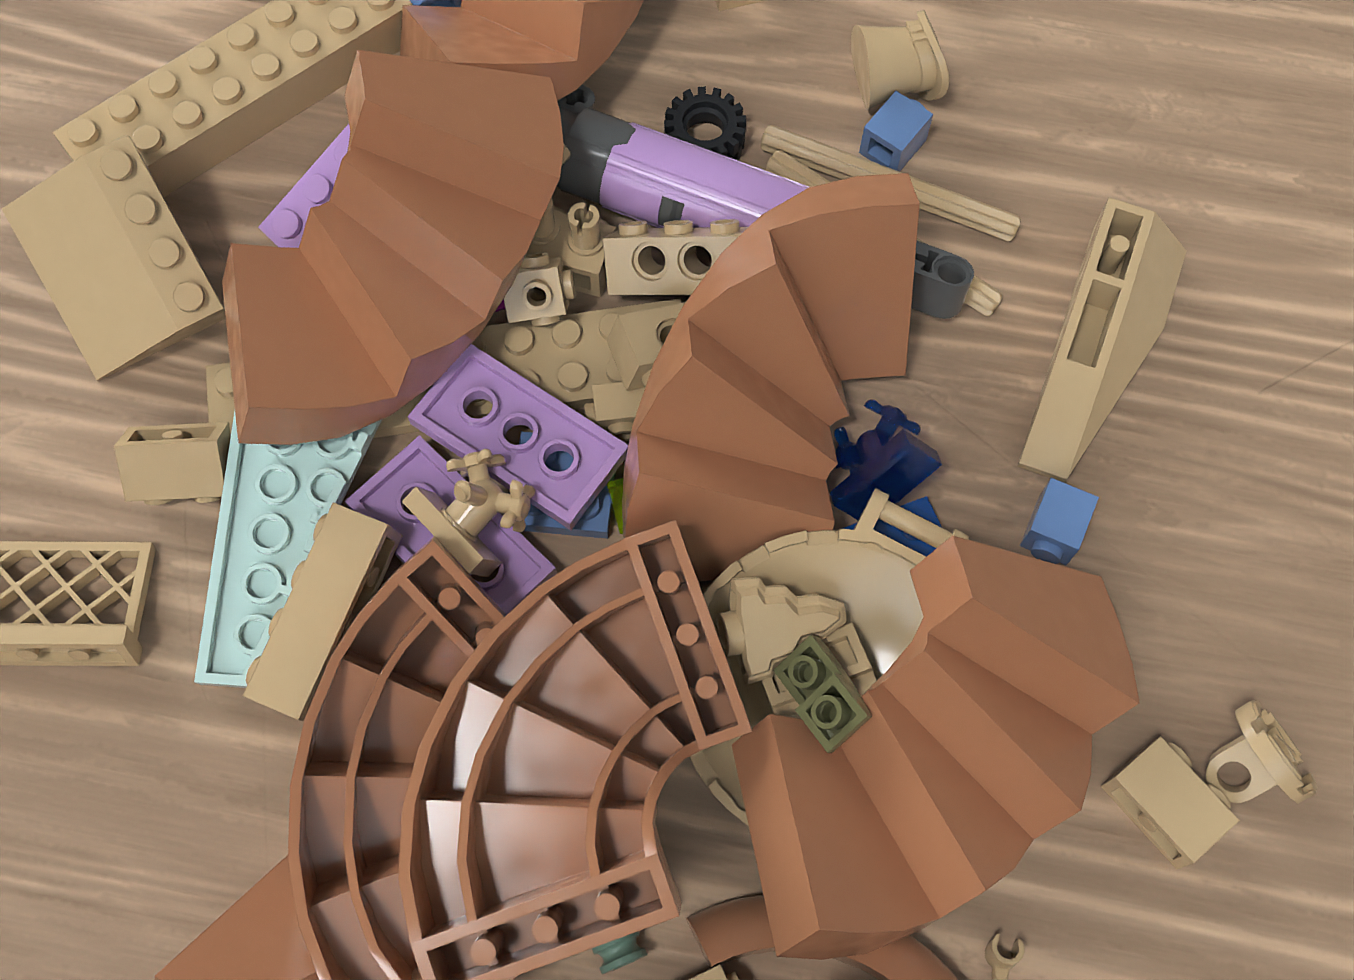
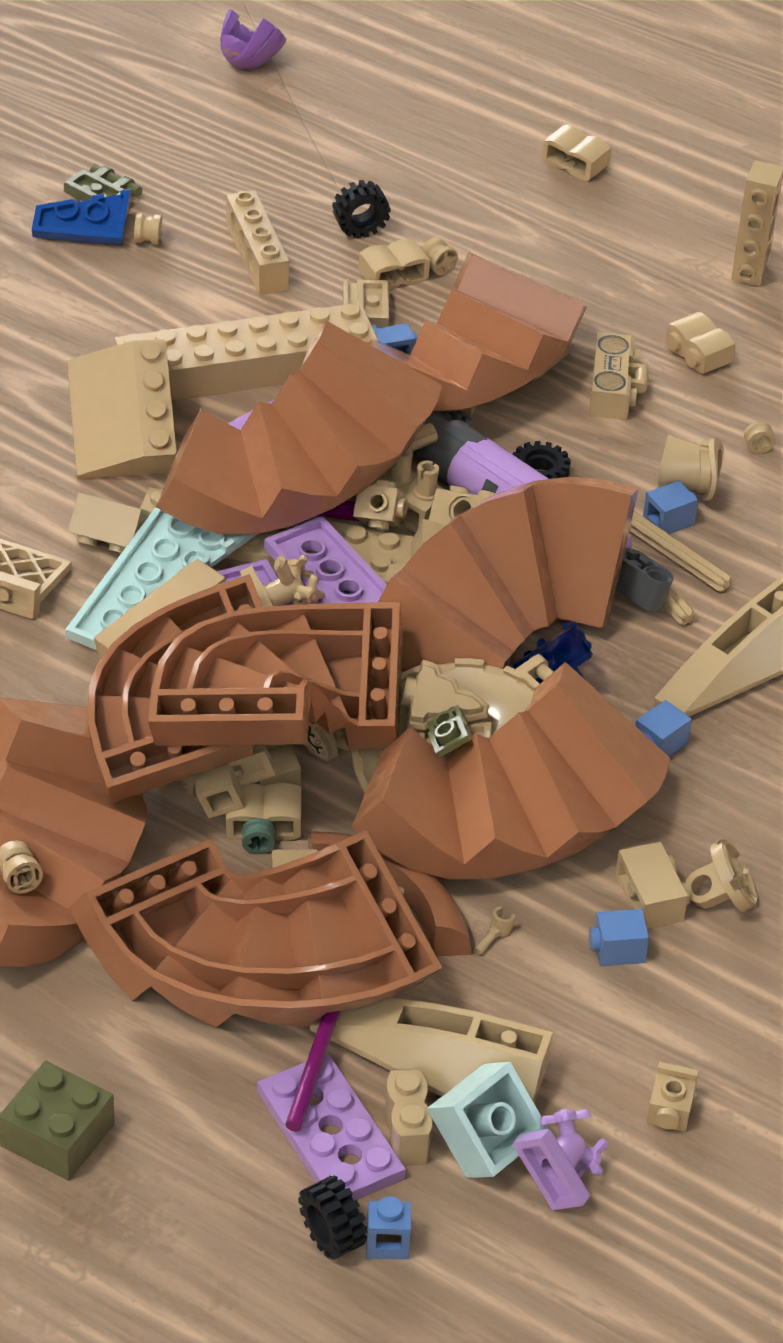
camera: 20 degrees right, 25 degrees down
(1173, 918) = (619, 937): none -> medium blue brick

